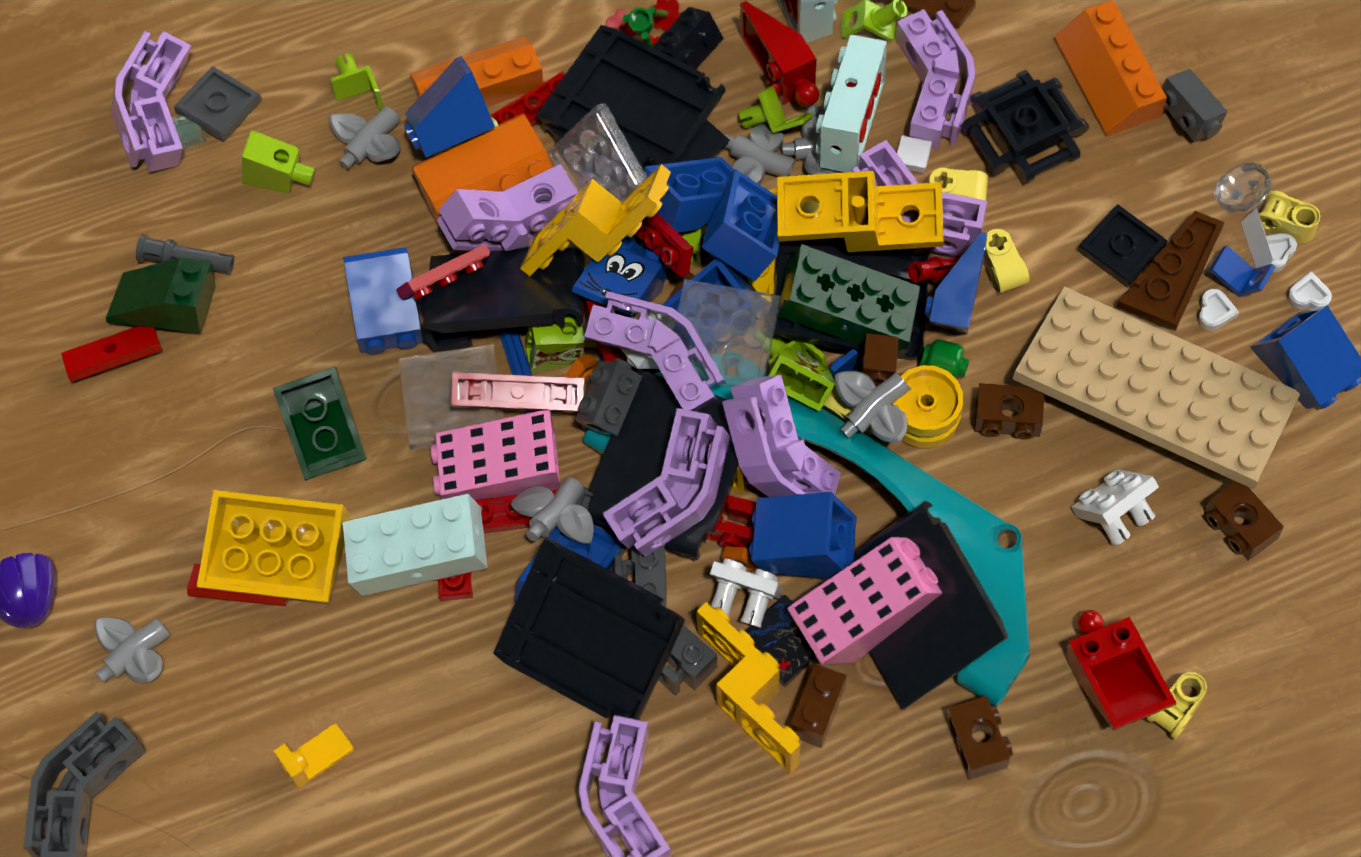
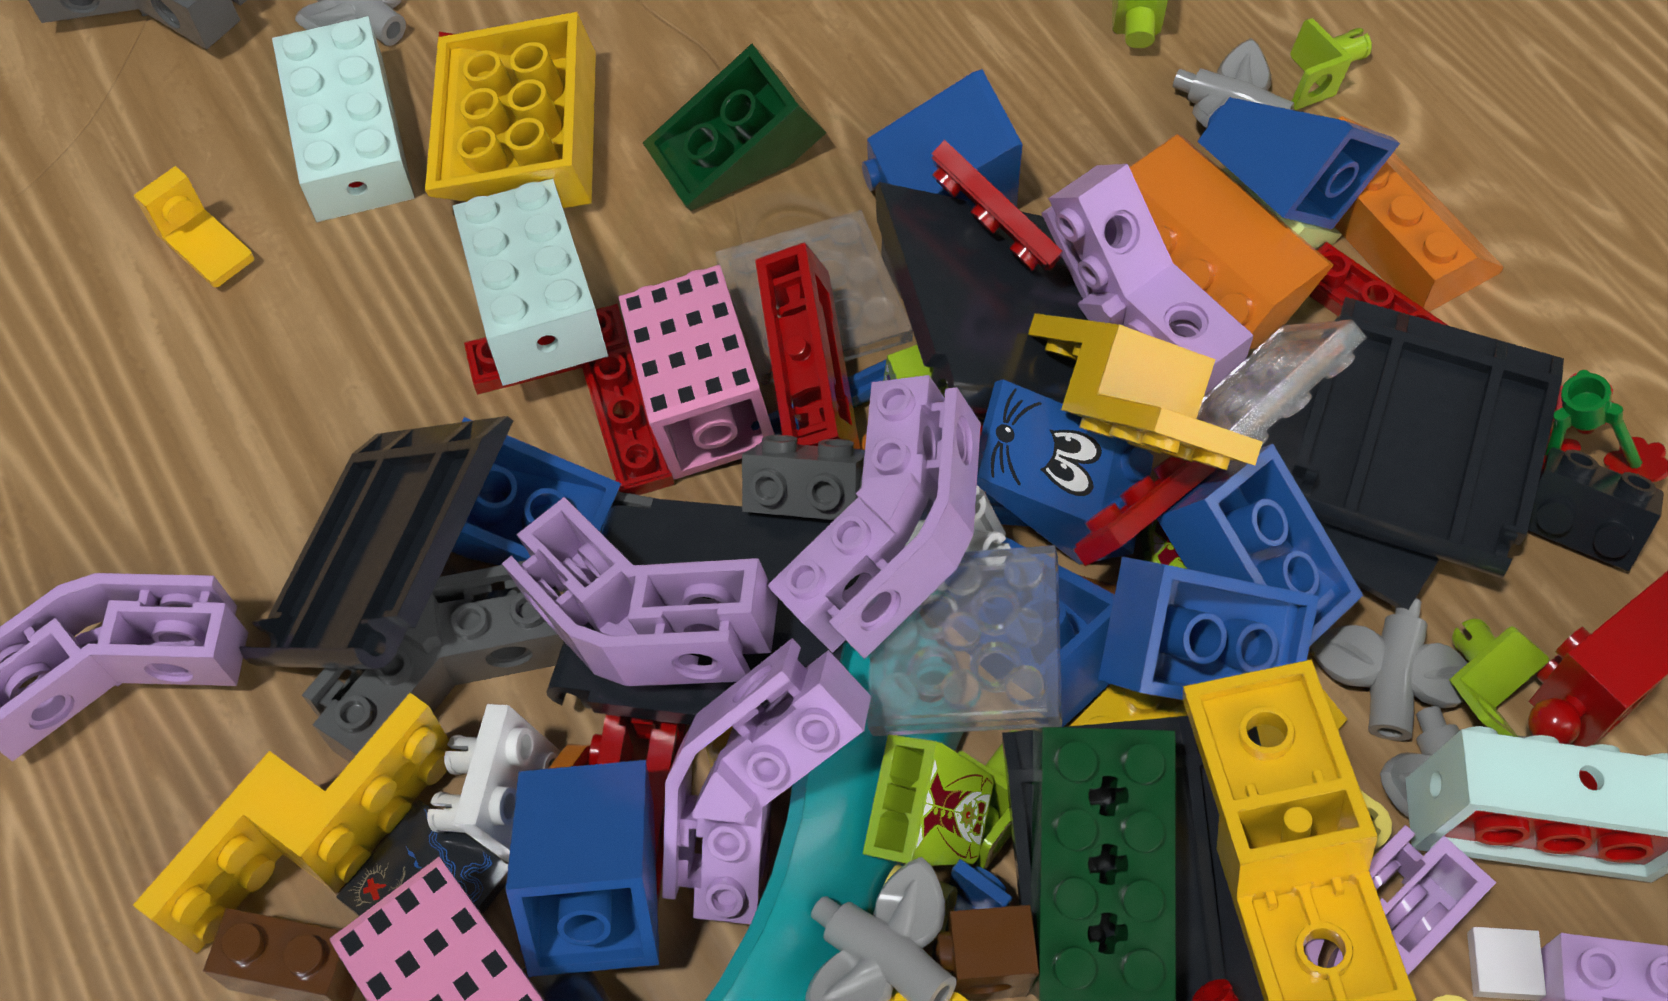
camera: 80 degrees right, 5 degrees down
(239, 658) = (341, 119): none -> light aqua brick
(556, 511) = (607, 458): light grey plant -> none

